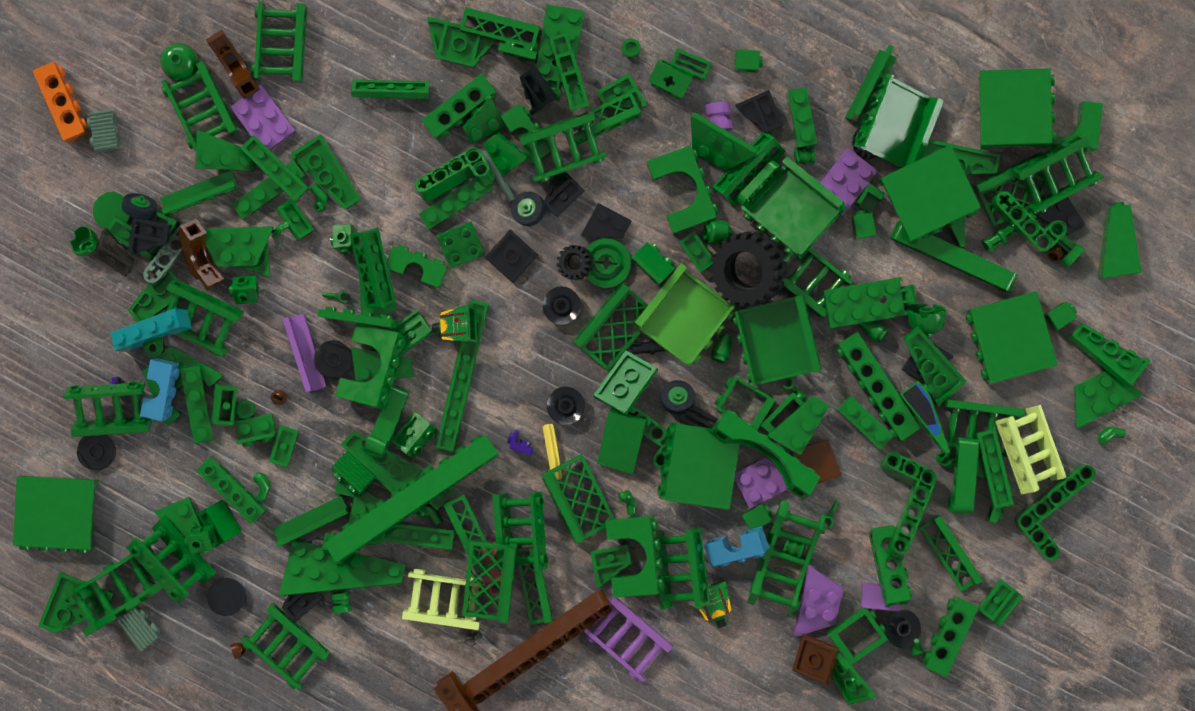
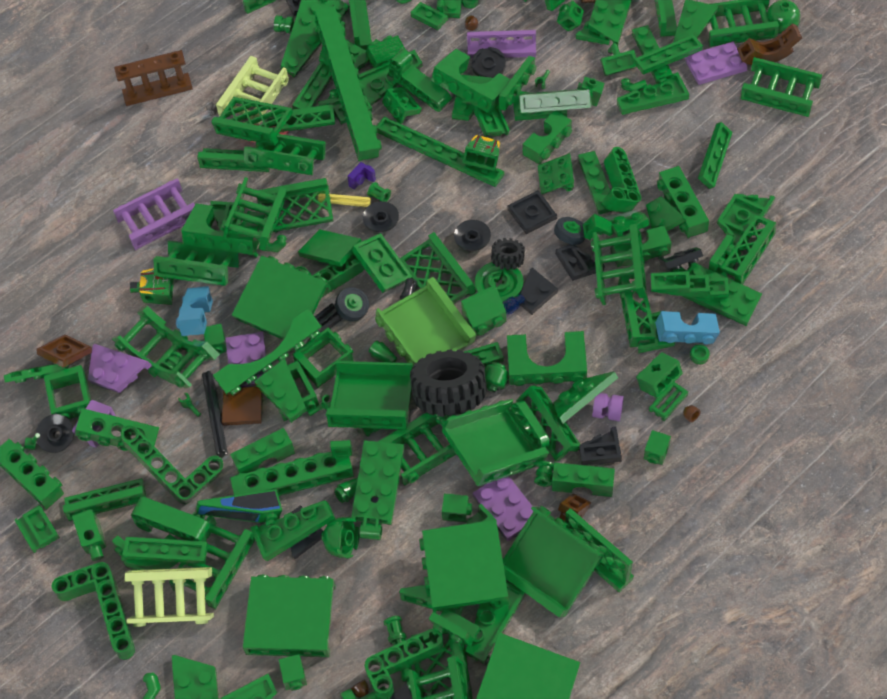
camera: 110 degrees right, 30 degrees down
(520, 181) = (597, 224): none -> green panel
(535, 418) = (379, 192): none -> green bush
(537, 647) = (181, 144): reddish brown beam -> none
(603, 512) = (268, 224): none -> green fence
(607, 49) = (672, 329): none -> dark azure arch
(630, 241) = (512, 304): none -> clear blue cylinder
(699, 40) = (691, 413): none -> reddish brown hinge
(831, 119) = (576, 503): none -> reddish brown slope
(833, 486) = (214, 414): none -> black axle
(846, 345) = (341, 448): none -> green tile
(958, 259) = (382, 595): green beam -> none
(988, 183) = (454, 625): none -> green bracket
(994, 547) = (90, 534): none -> green torso

